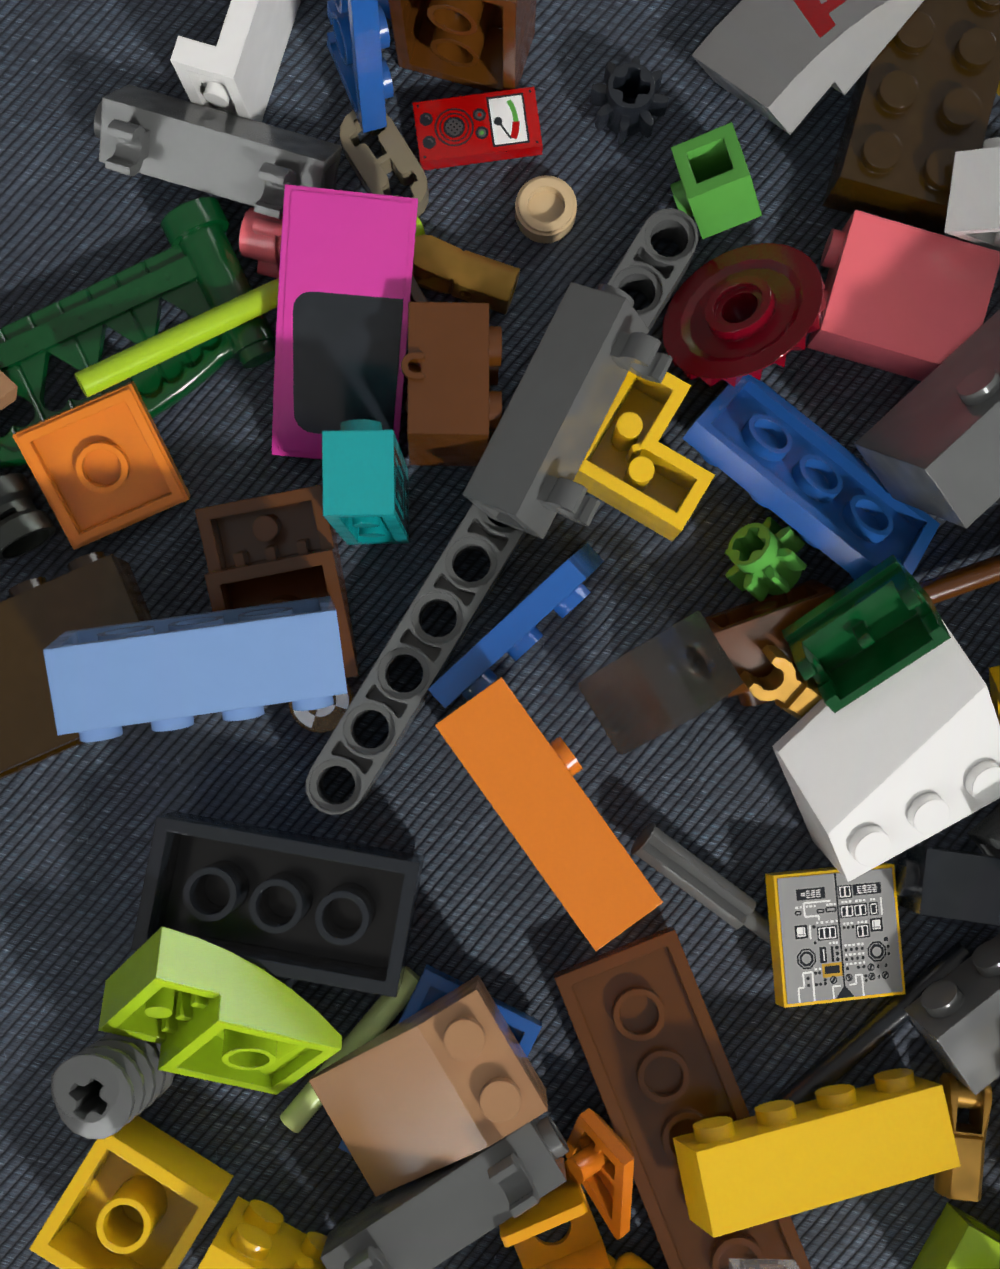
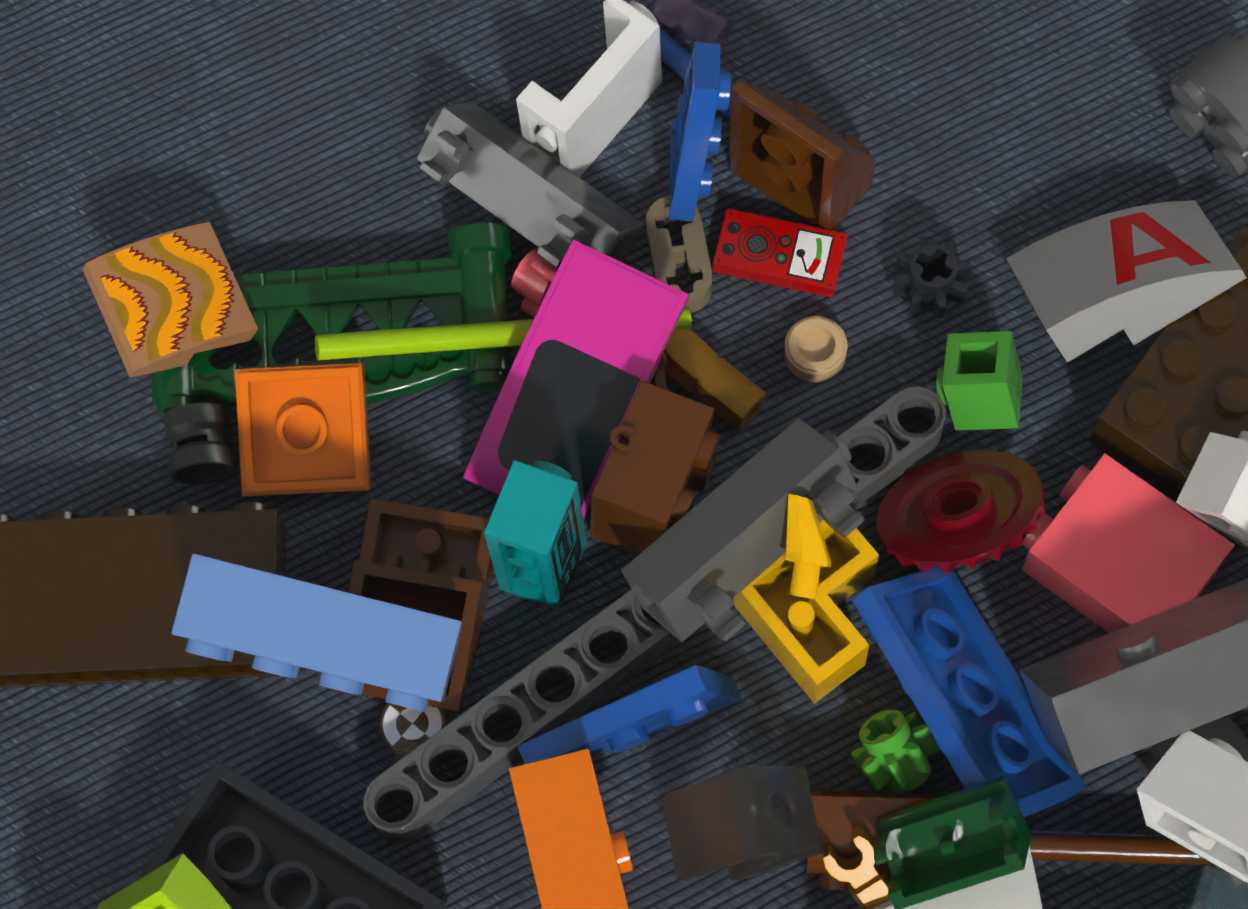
camera: 25 degrees right, 15 degrees down
(626, 406) = (805, 546): none -> yellow bar

